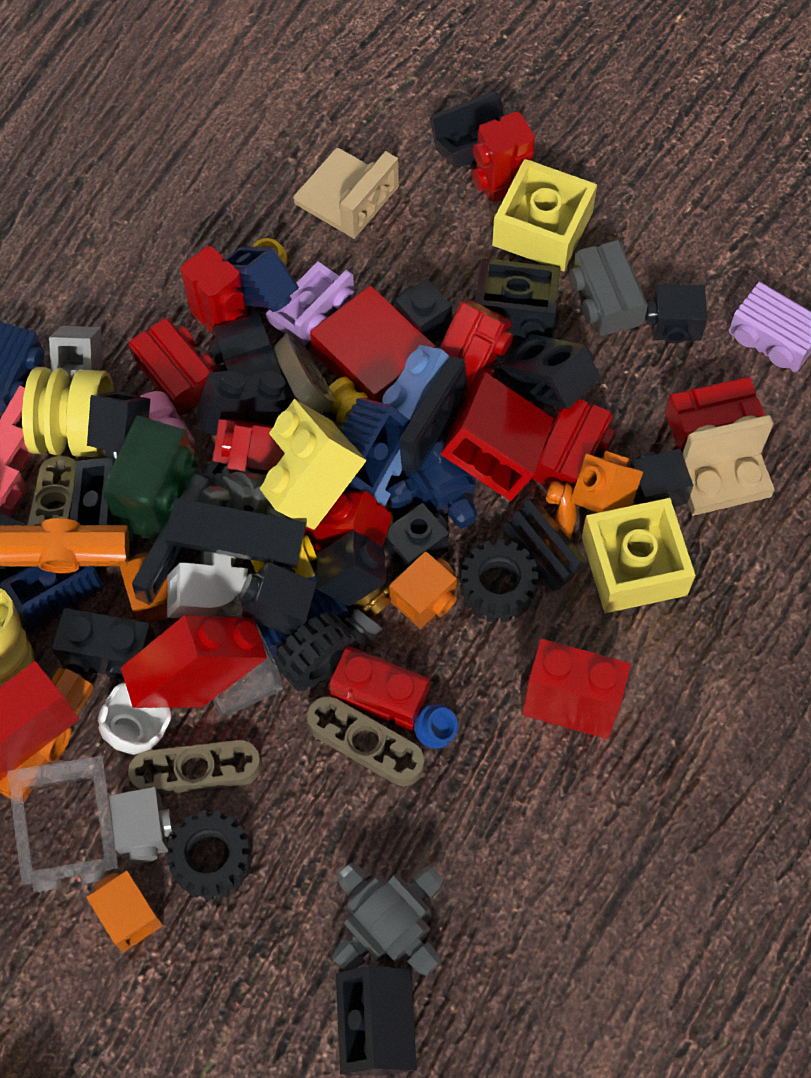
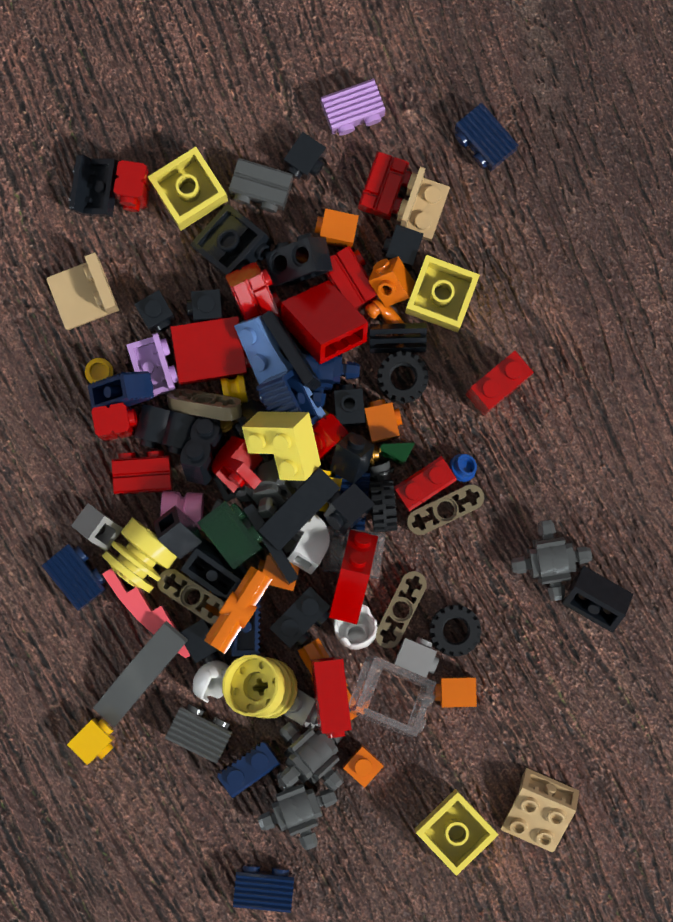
camera: 60 degrees left, 20 degrees up
(378, 264) = (155, 312): none -> black brick
(400, 624) = (396, 452): none -> dark green slope
(624, 392) = (337, 227): none -> orange brick

